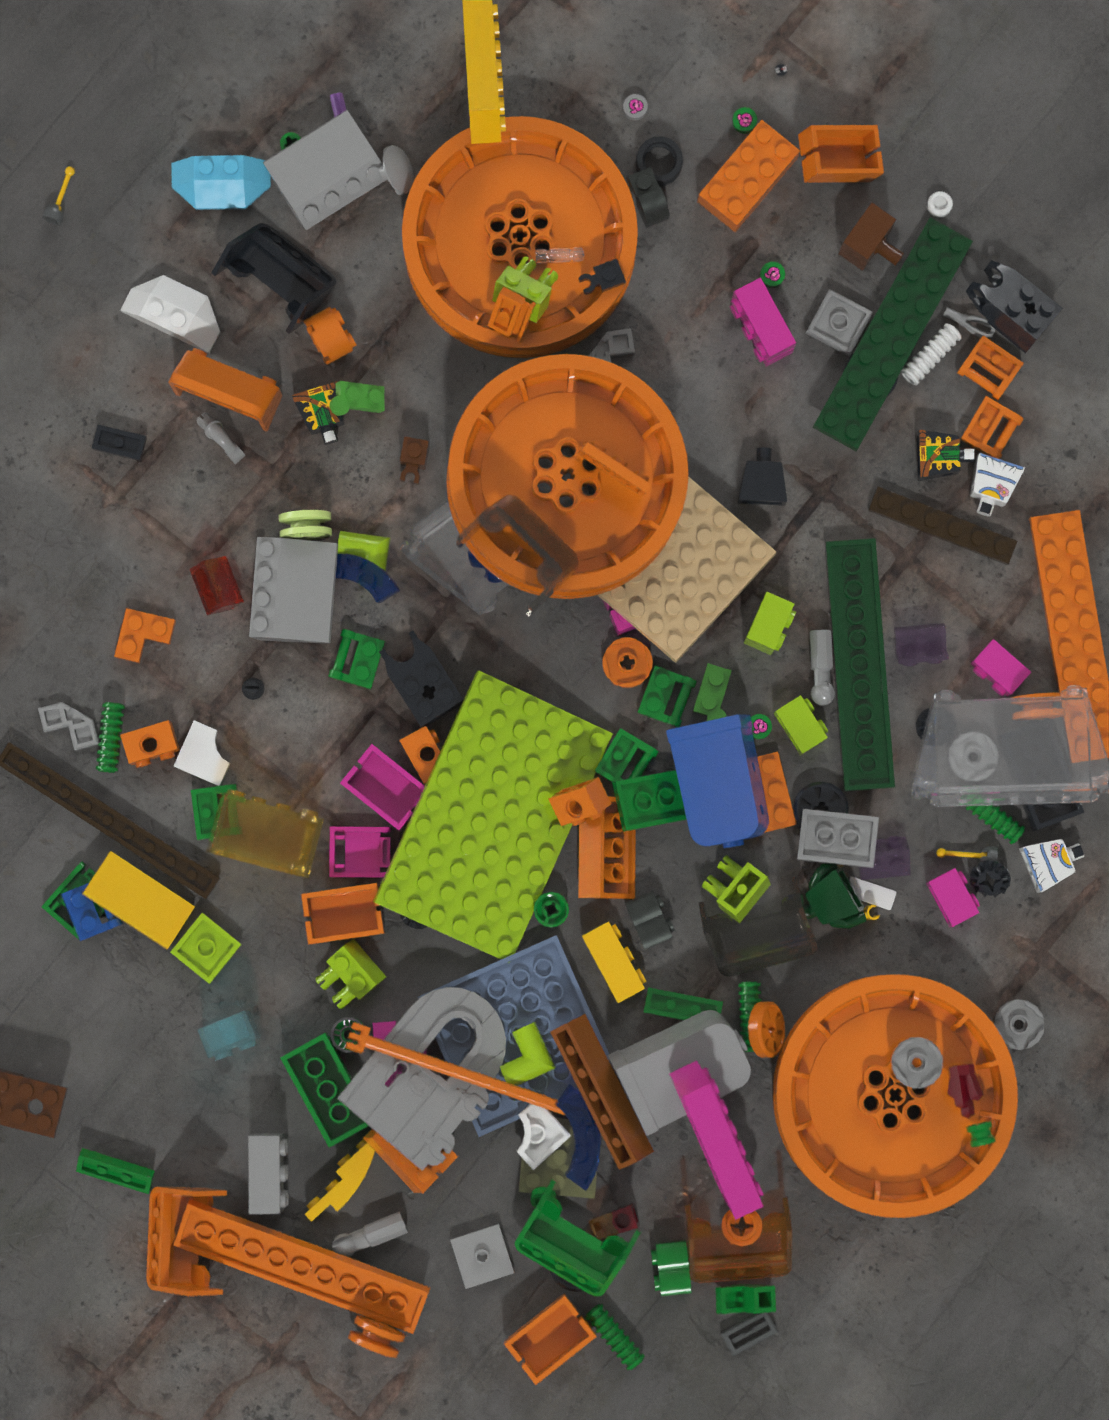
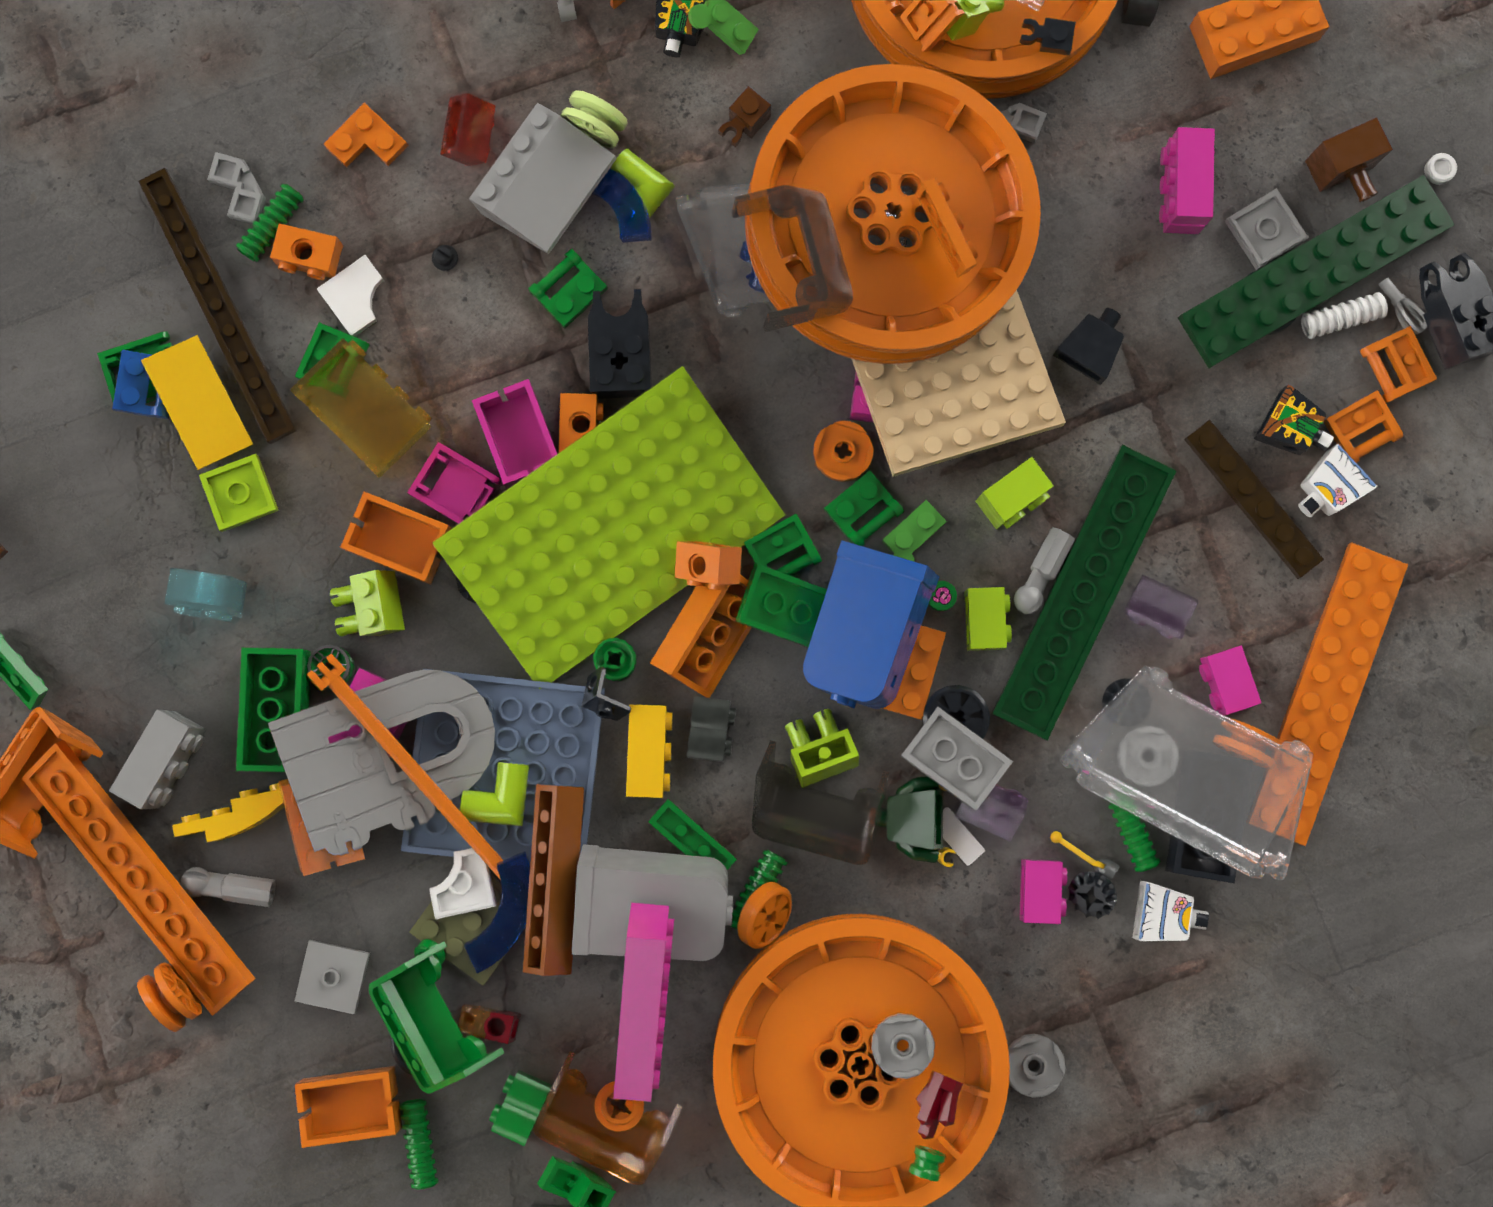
camera: 30 degrees right, 0 degrees up
(559, 947) = (600, 704): none -> black bracket
(772, 274) = (1226, 142): green tile -> none
(839, 153) = (1368, 51): orange piece -> none

